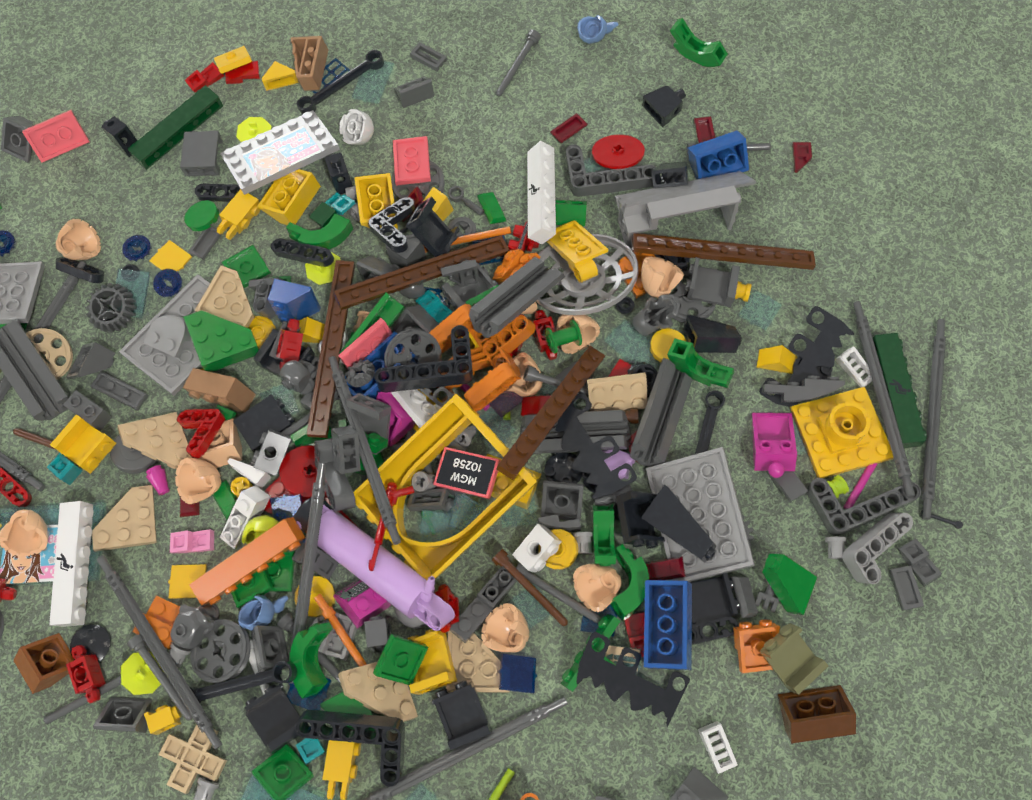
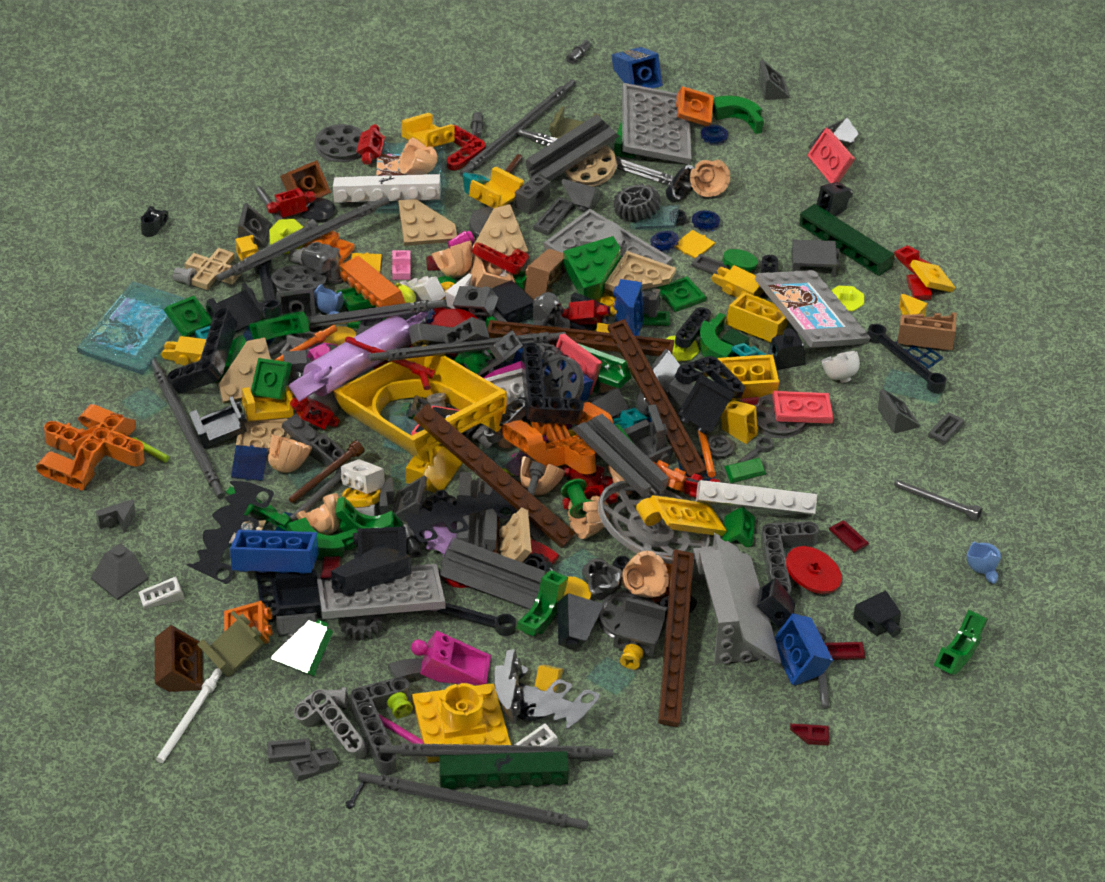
camera: 85 degrees right, 25 degrees down
(839, 678) = (207, 687): none -> white bar

